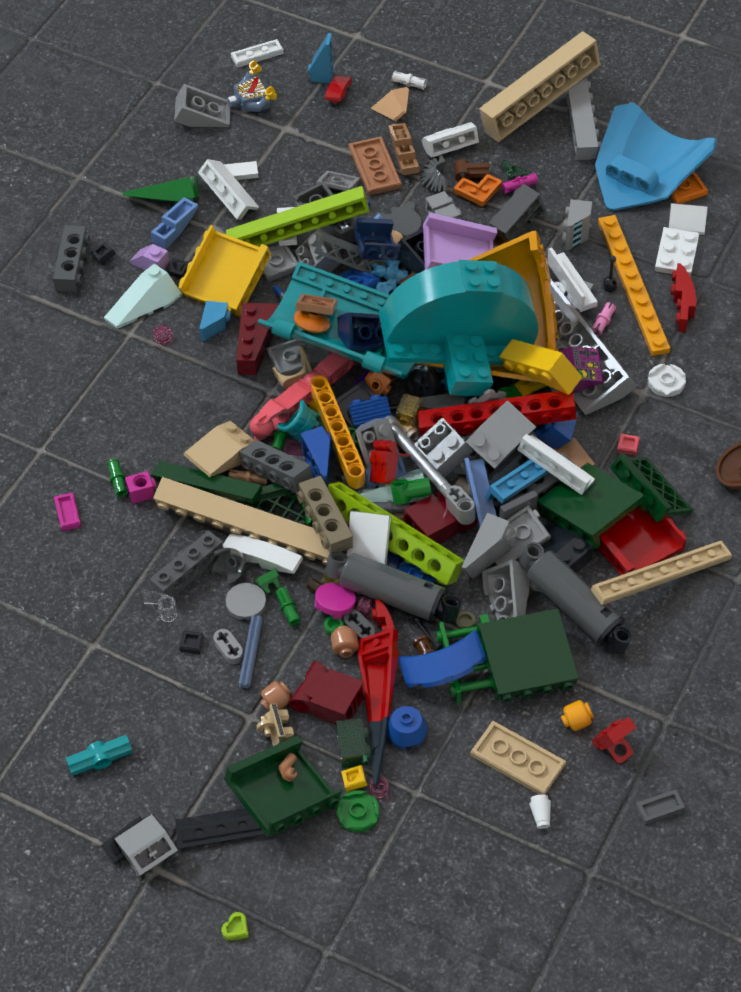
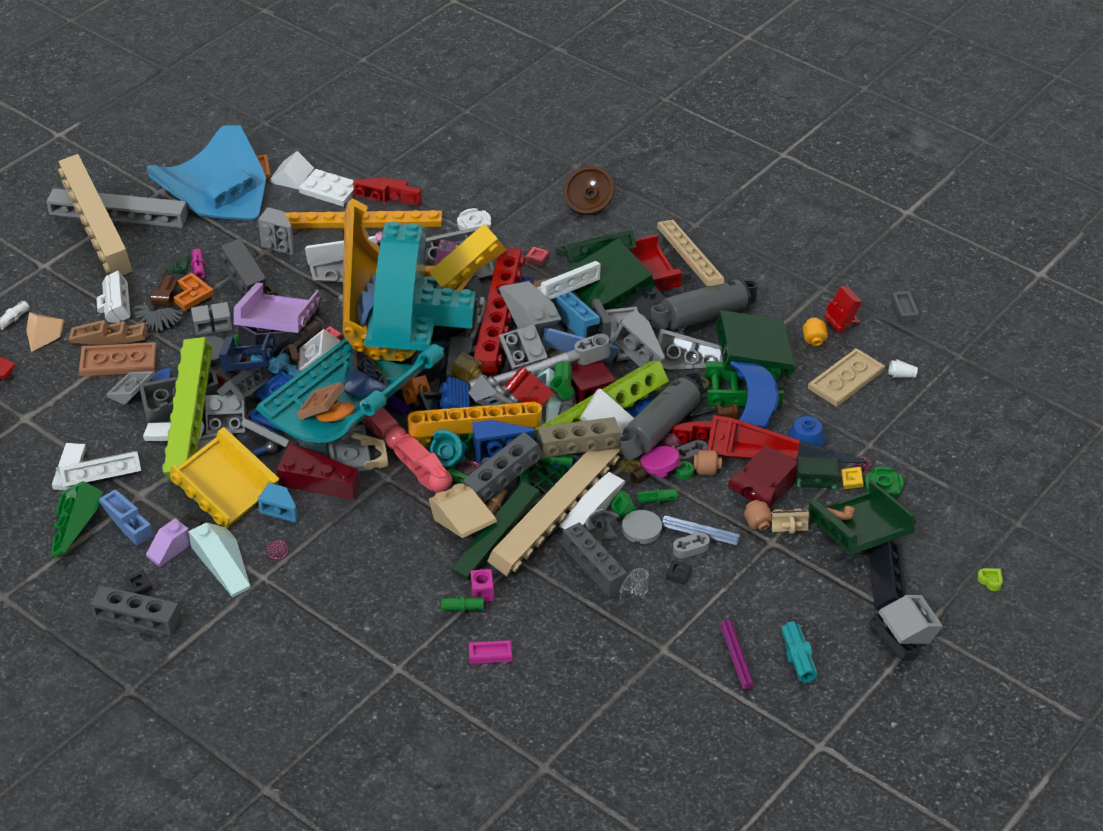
camera: 80 degrees left, 10 degrees down
(92, 704) = (737, 654): none -> magenta axle

